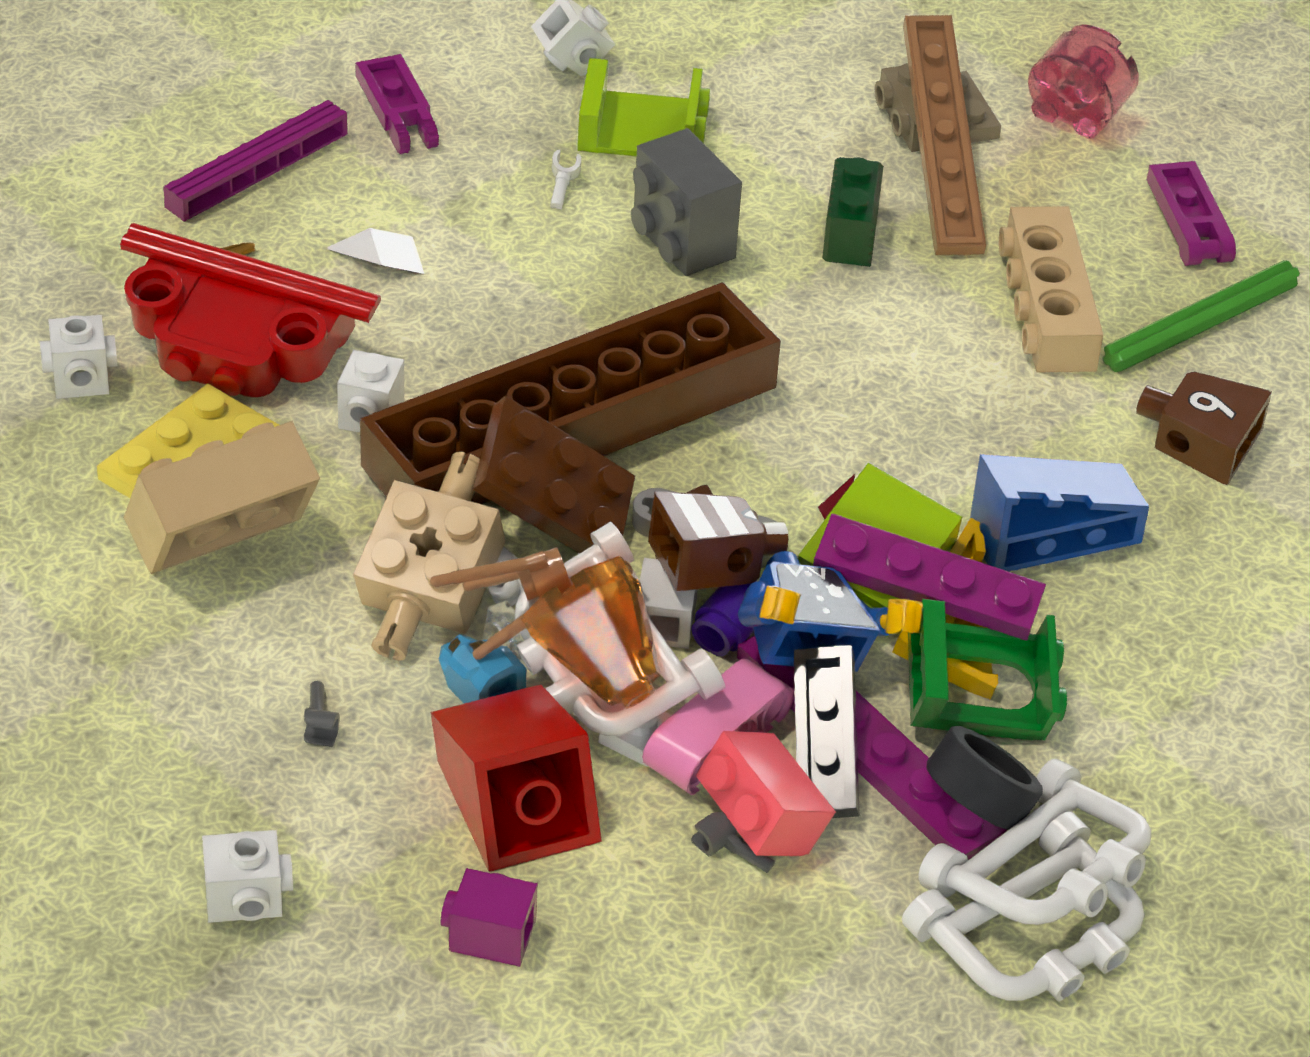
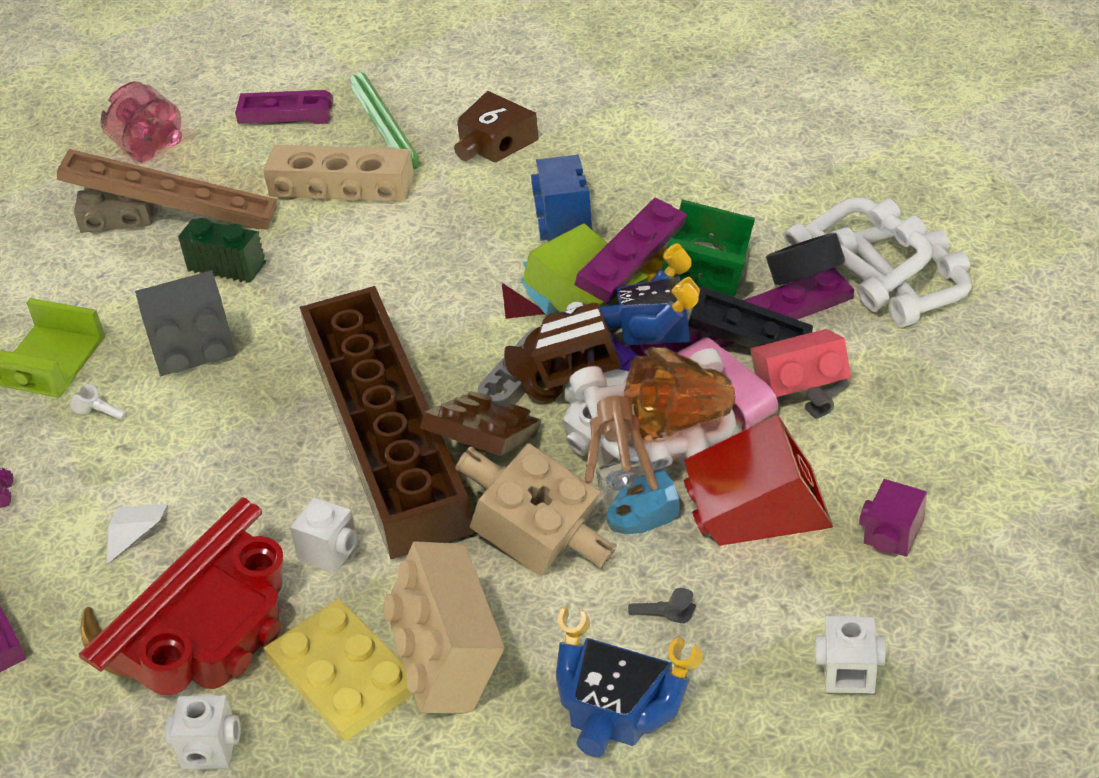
camera: 70 degrees left, 0 degrees up
(173, 667) = (617, 690): none -> torso

